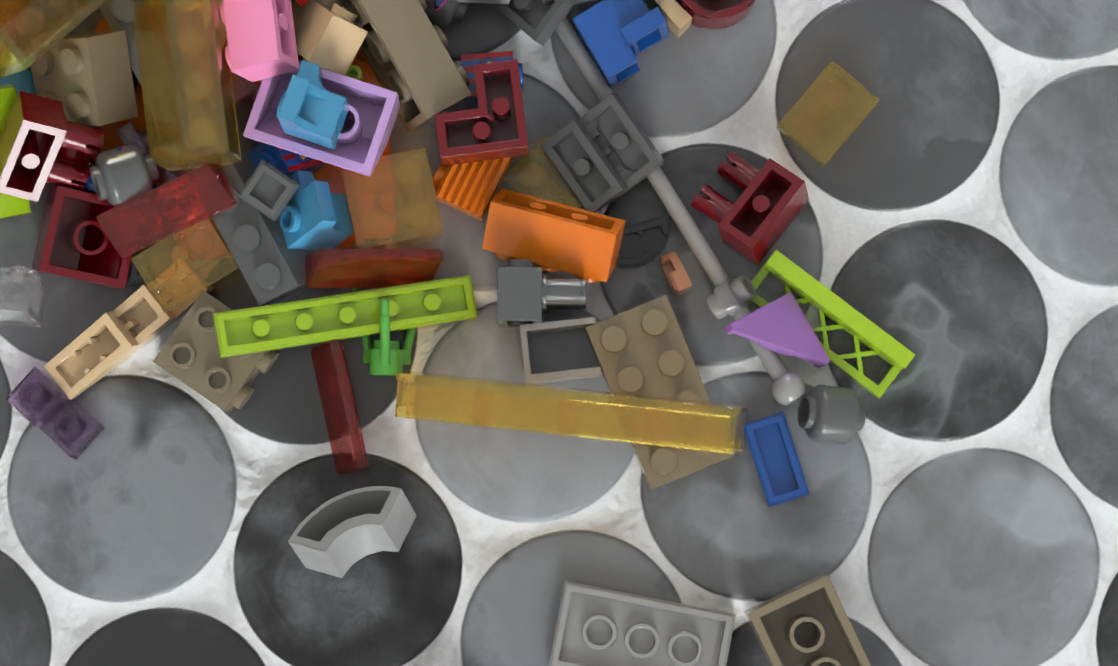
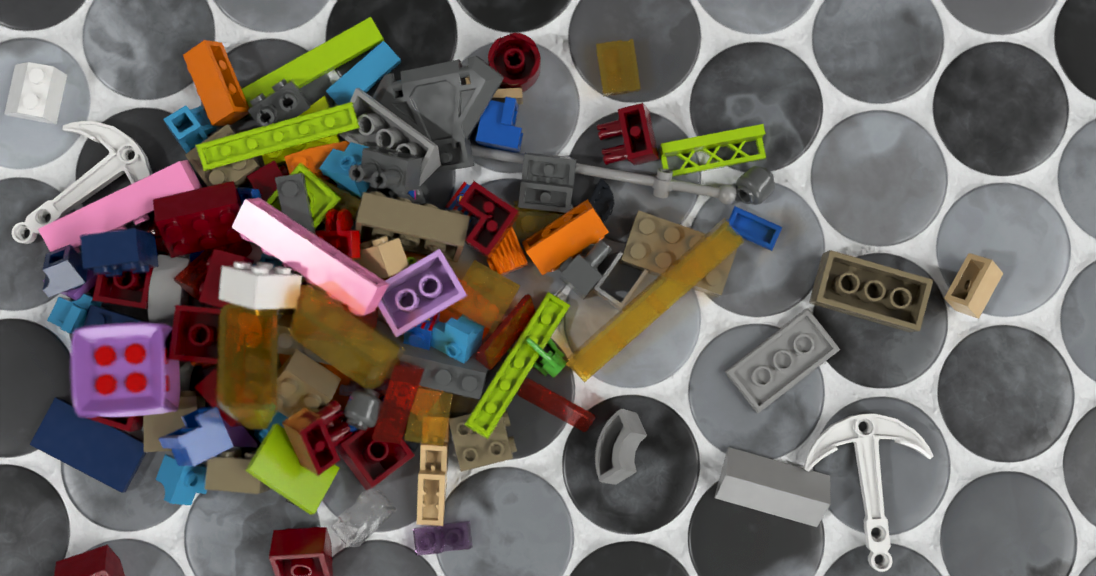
camera: 50 degrees left, 0 degrees up
(269, 190) = (431, 347): dark grey tile -> none
(310, 109) = (413, 294): dark azure brick -> none
(675, 273) = (629, 198): nougat tile -> none
(782, 329) = (698, 173): medium lavender tile -> none

